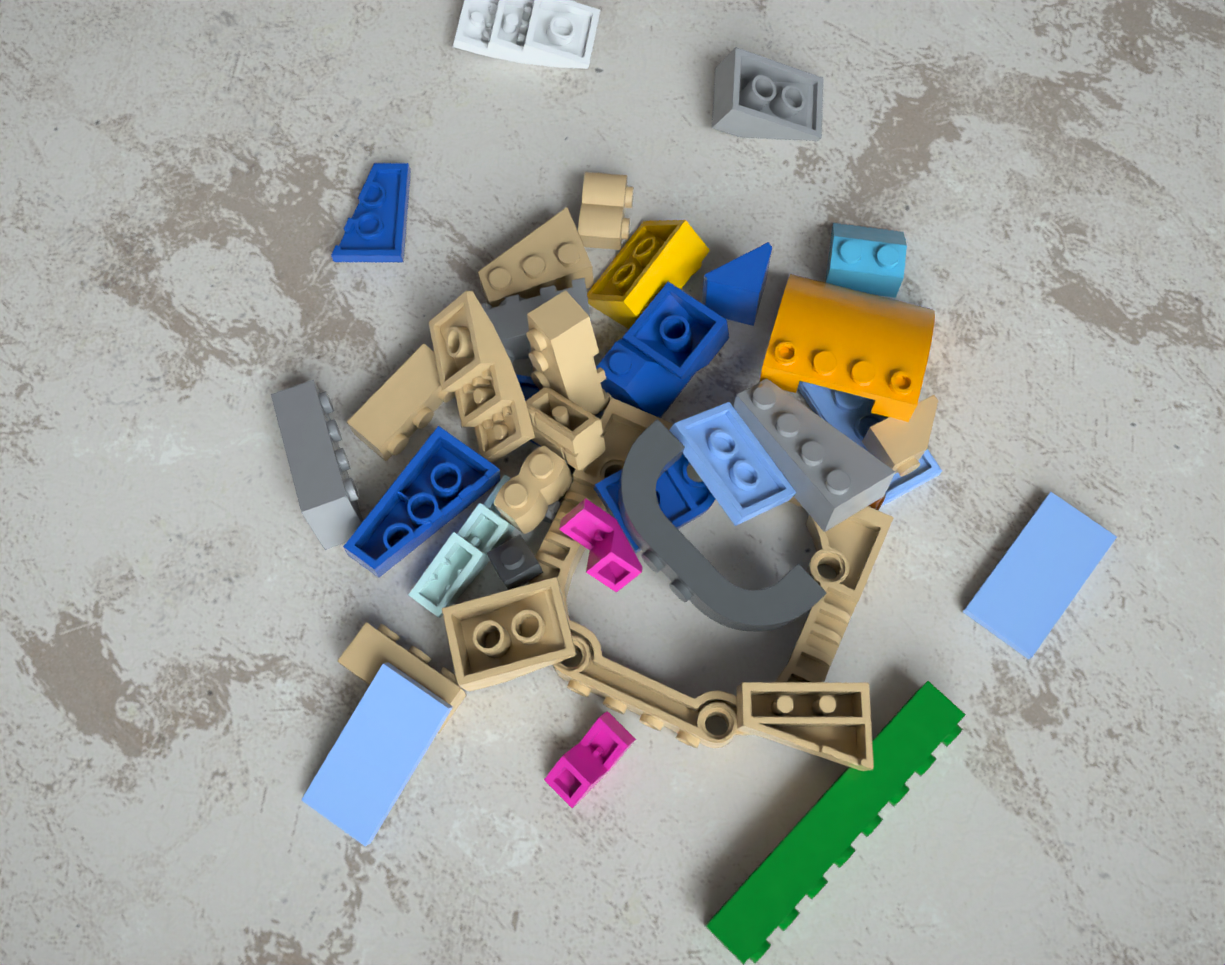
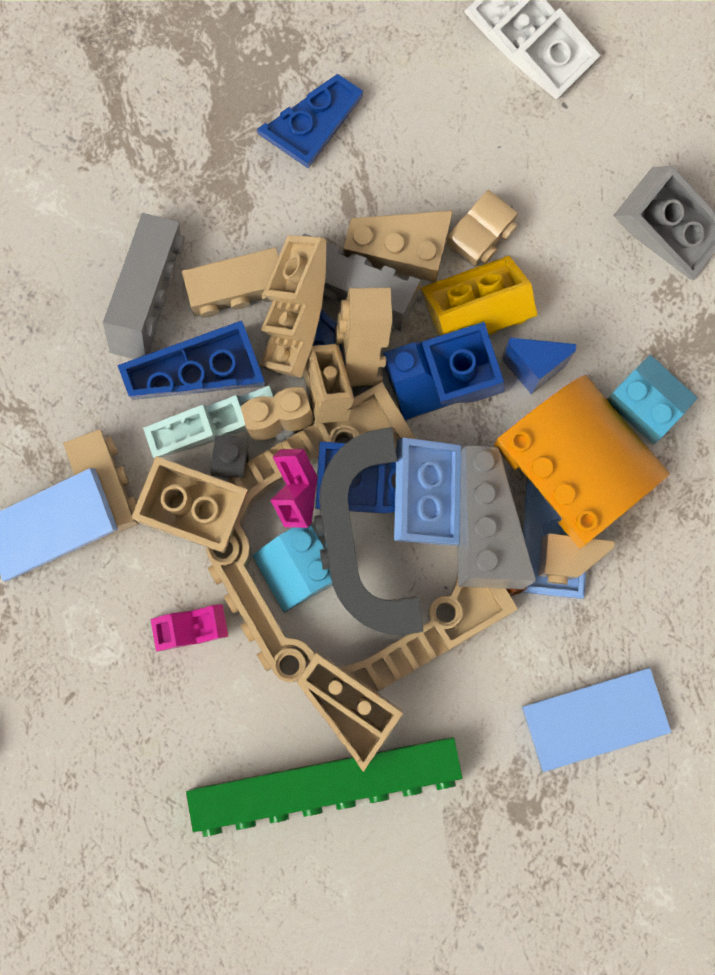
camera: 30 degrees right, 10 degrees up
(651, 626) = (293, 567): none -> medium azure slope

